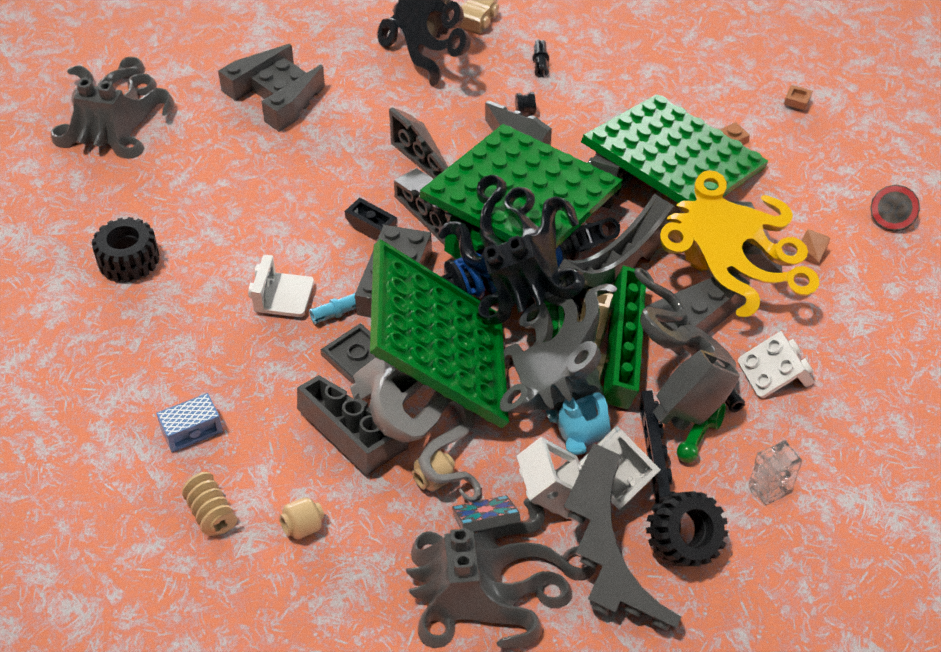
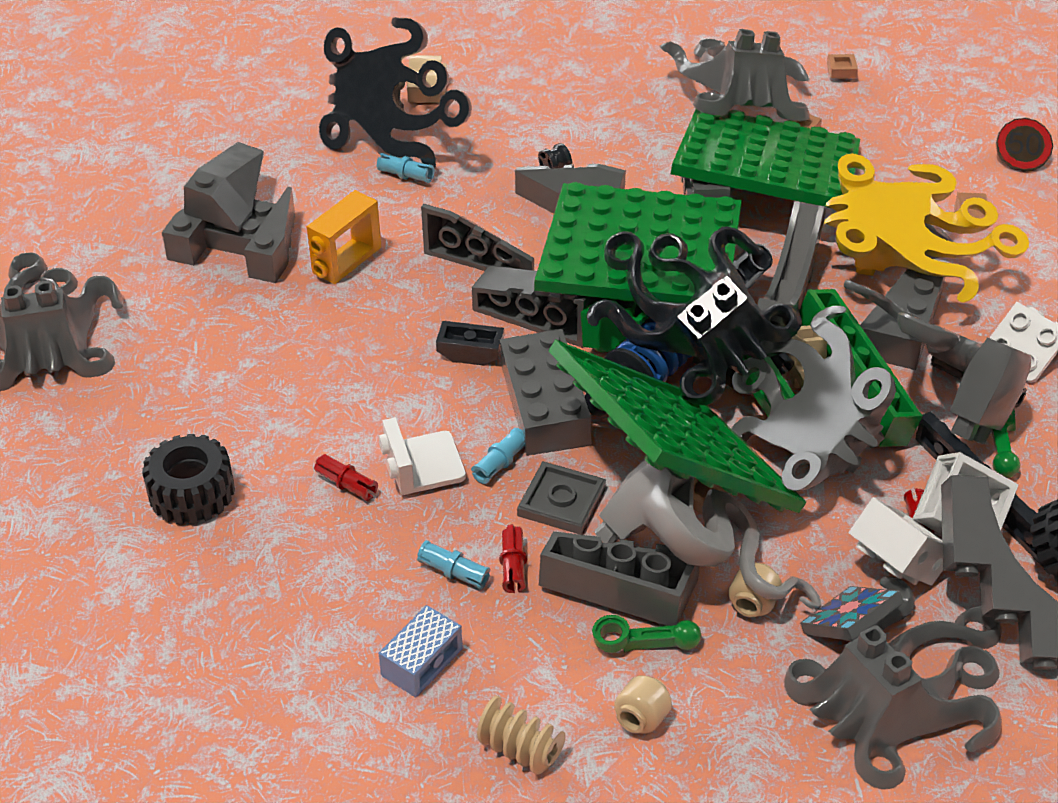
camera: 25 degrees left, 5 degrees down
(226, 285) = (345, 477): none -> red axle
(252, 372) = (453, 564): none -> medium azure pin
(275, 51) = (225, 187): none -> dark grey wedge
(290, 384) = (513, 559): none -> red axle
(331, 99) = (355, 213): none -> light orange window
(365, 482) = (684, 635): none -> green piece
(418, 75) = (405, 167): none -> medium azure pin
(540, 58) = (534, 107): black axle -> none
(580, 423) = (877, 476): medium azure piece -> none
(703, 83) = (742, 74): none -> dark grey hips

